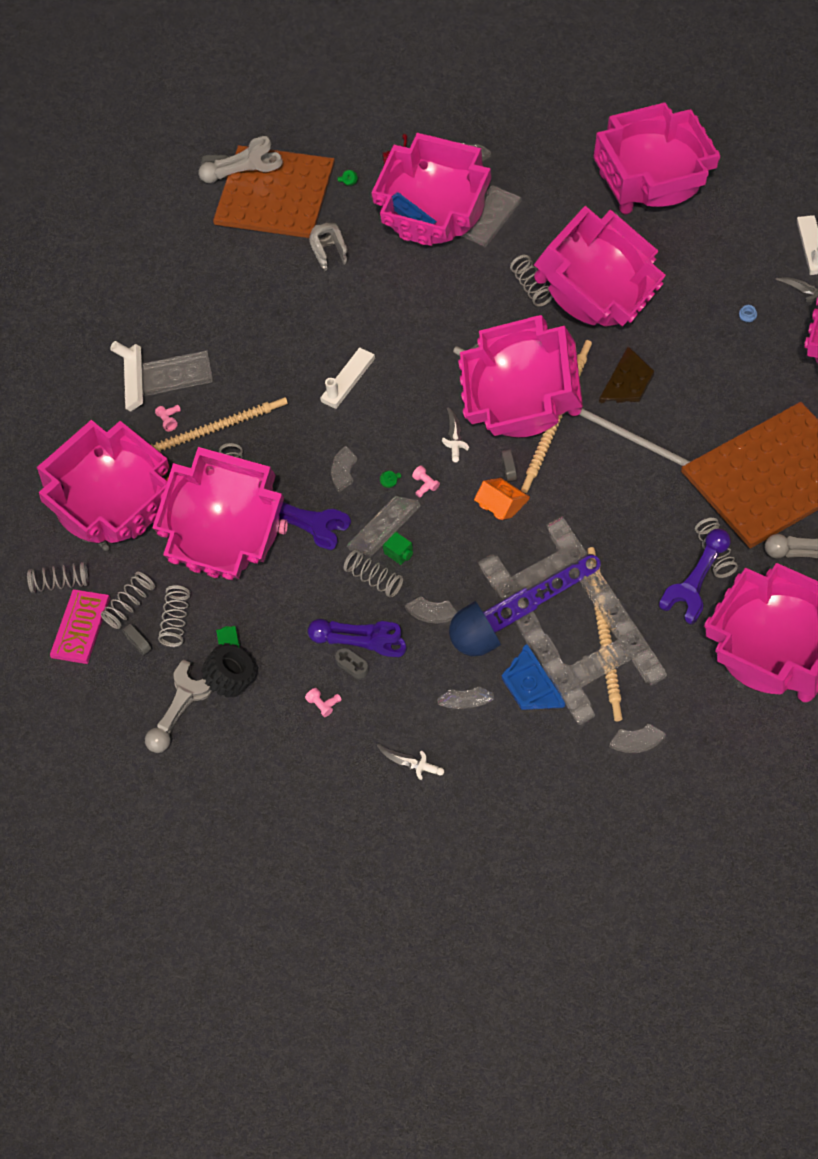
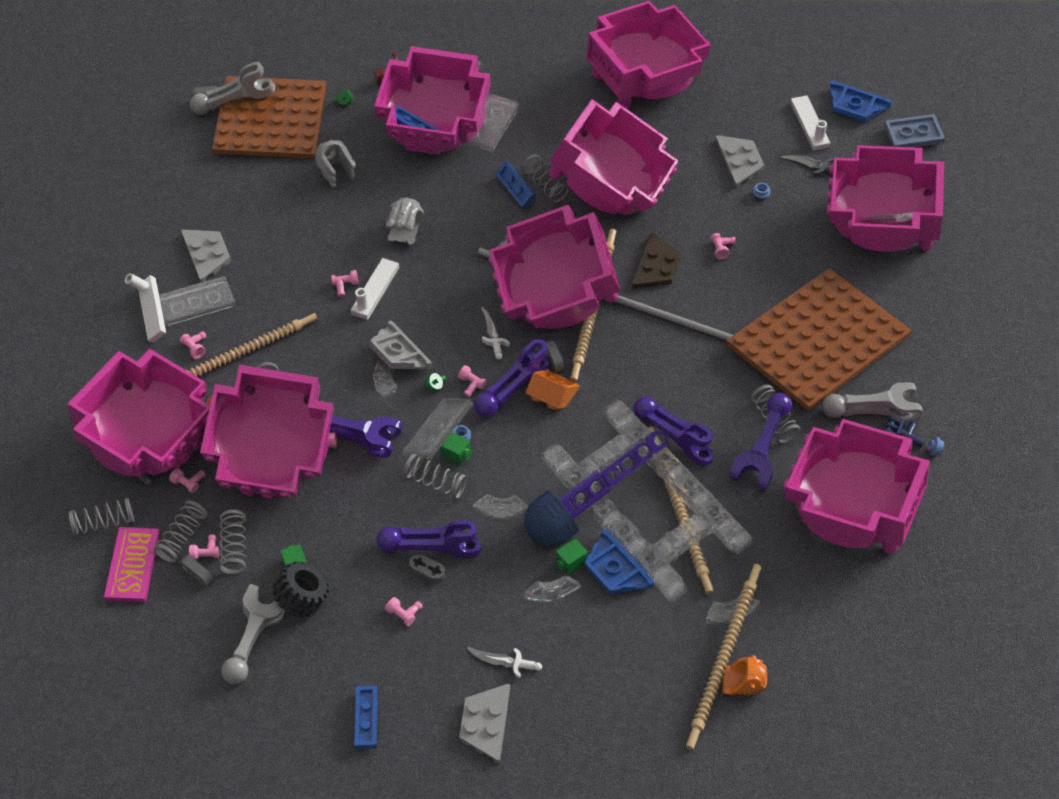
camera: 15 degrees left, 5 degrees down
(133, 546) = (177, 476): none -> bright pink piece
(154, 621) = (211, 551): none -> bright pink piece
(193, 324) = (206, 251): none -> light grey wing
(271, 799) = (366, 717): none -> blue plate
(314, 366) = (340, 280): none -> bright pink piece
(359, 443) = (398, 349): none -> light grey wing
(382, 817) = (485, 721): none -> light grey wing
(386, 311) = (404, 220): none -> light grey piece
(406, 529) = (462, 430): none -> medium blue plate
(480, 470) = (527, 363): none -> dark purple piece
(489, 668) = (571, 556): none -> green brick
(502, 284) = (515, 185): none -> blue plate
(583, 846) = (698, 723): none -> tan hose
(624, 563) = (685, 434): none -> dark purple piece
(635, 807) = (745, 677): none -> orange helmet
(695, 373) = (721, 251): none -> bright pink piece
(733, 276) = (740, 158): none -> light grey wing

